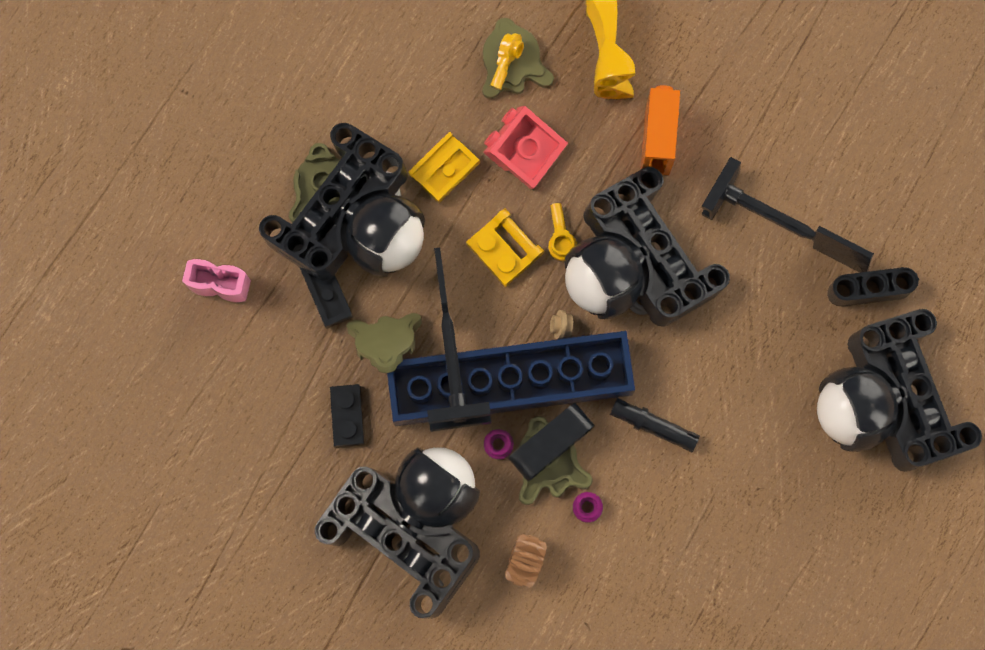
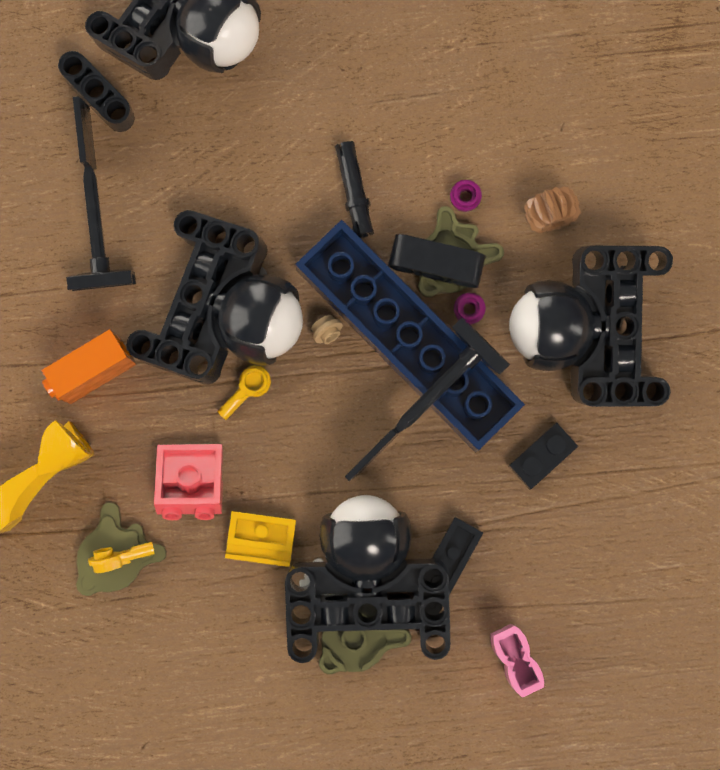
camera: 130 degrees left, 5 degrees up
(385, 340) = (457, 467): olive tile -> none
(497, 253) = (304, 431): yellow plate -> none

